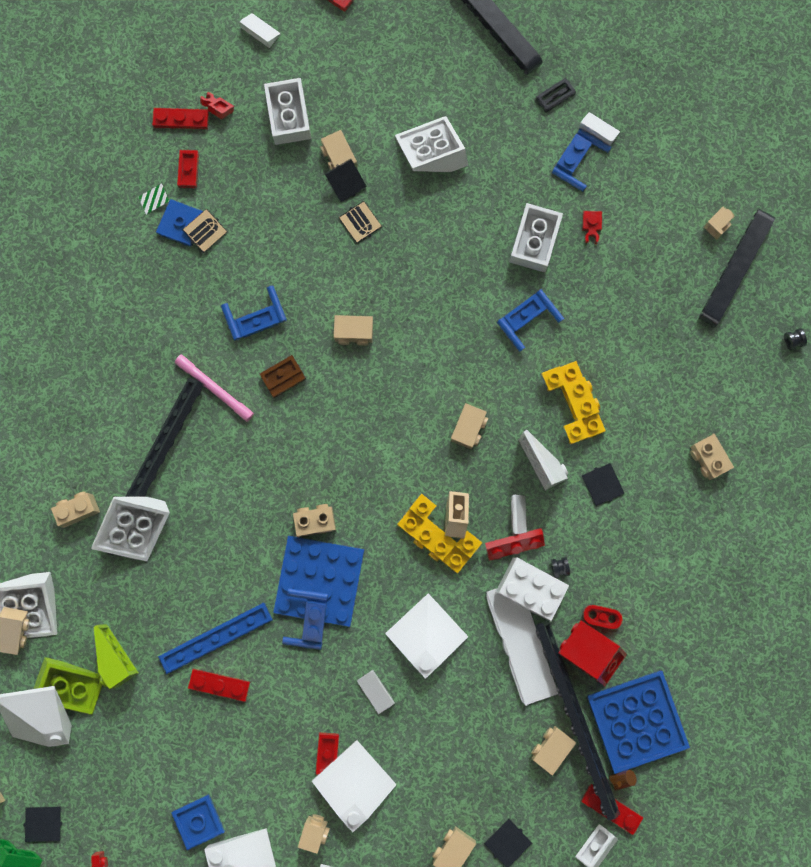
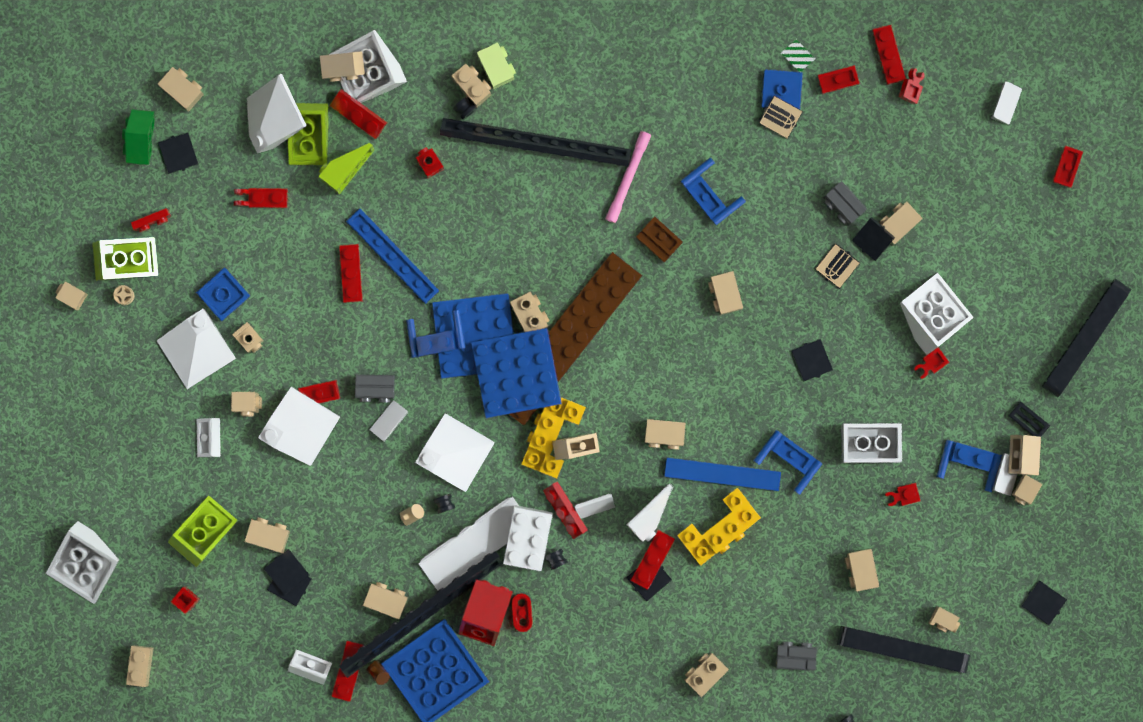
camera: 65 degrees right, 5 degrees up
(65, 480) = (496, 66): none -> yellowish green brick
(65, 629) = (358, 114): none -> red plate
(94, 522) = (465, 108): none -> black wheel
(116, 751) = (263, 197): none -> red hinge
(131, 527) = (471, 146): white slope -> none
(143, 573) = (429, 169): none -> red brick
(241, 809) = (247, 330): none -> tan brick
(287, 111) = (926, 159): white brick -> none
(304, 197) = (844, 203): none -> dark grey brick
(338, 695) = (375, 387): none -> dark grey brick
(350, 492) = (587, 316): none -> reddish brown plate
(367, 550) = (516, 373): none -> blue plate
(440, 271) = (812, 360): none -> black piece
(473, 661) = (444, 503): none -> black wheel
(475, 697) = (412, 514): none -> tan piece
(477, 162) = (933, 361): none -> red plate
(495, 842) = (286, 571): none -> black piece
(523, 385) = (722, 474): none -> blue tile
(586, 474) = (653, 559): none -> red plate
(587, 105) = (1024, 455): none -> tan brick
(619, 114) = (1026, 490): none -> tan brick
(652, 281) = (862, 570): none -> tan brick
(717, 368) = (796, 657): none -> dark grey brick
(726, 131) = (1044, 602): none -> black piece

